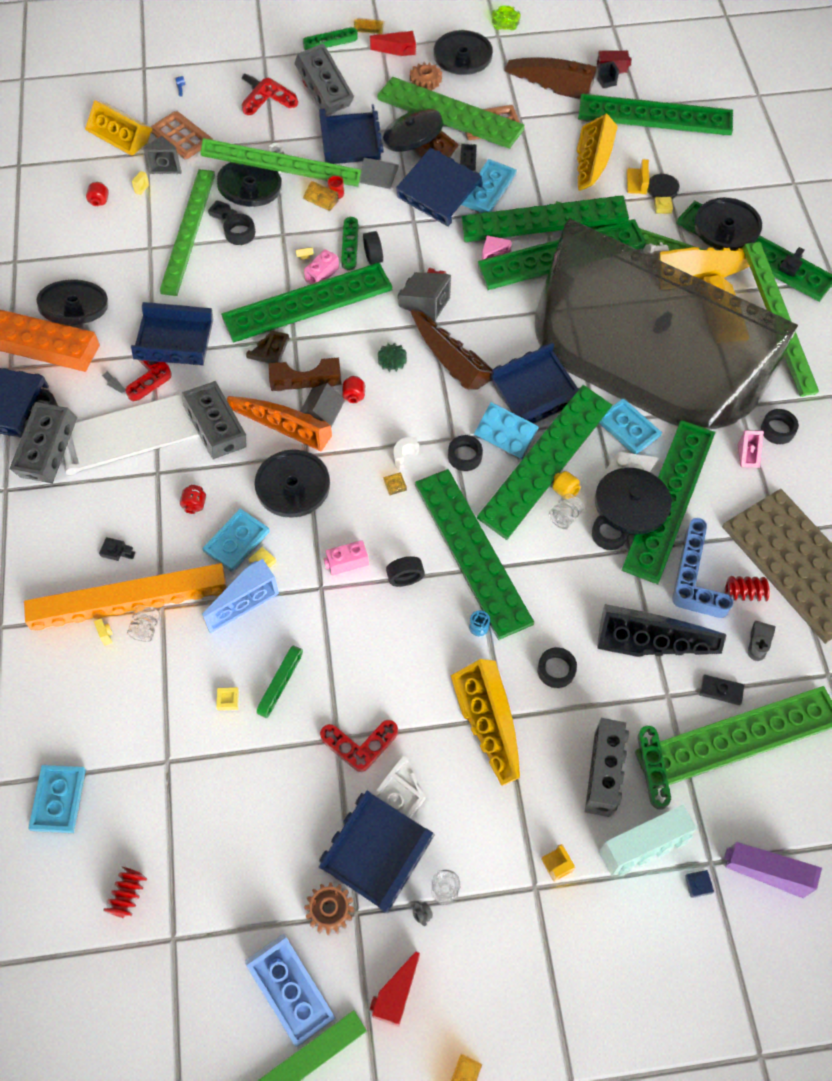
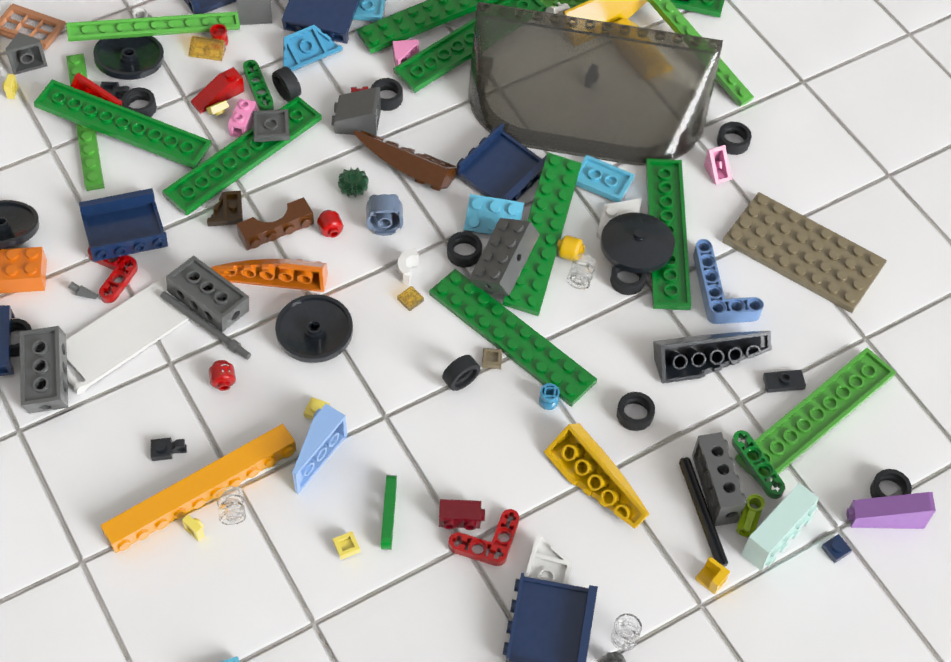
camera: 25 degrees left, 5 degrees down
(204, 210) = (84, 84): none -> red plate
(216, 243) = (123, 124): none -> green plate
(216, 474) = (232, 345): none -> dark grey bar
(236, 540) = (282, 399): medium azure plate -> none
(316, 236) = (221, 88): none -> red slope
(323, 403) = (305, 245): dark grey slope -> none
(342, 282) = (271, 125): none -> dark grey tile
(344, 708) = (461, 514): none -> dark red brick
(346, 557) = (398, 379): bright pink brick -> none
(404, 396) = (384, 214): none -> sand blue brick
(407, 220) = (307, 47): none -> dark azure wing
(444, 567) = (492, 358): none -> dark tan tile
(463, 274) = (392, 85): none -> black tyre
(496, 472) = (504, 256): none -> dark grey brick
(578, 795) = (703, 511): none -> black axle
(622, 817) = (750, 516): none -> lime piece
(747, 587) = (769, 286): red piece -> none
(760, 640) = (798, 327): dark grey piece -> none
(791, 829) = (890, 475): none -> black tyre

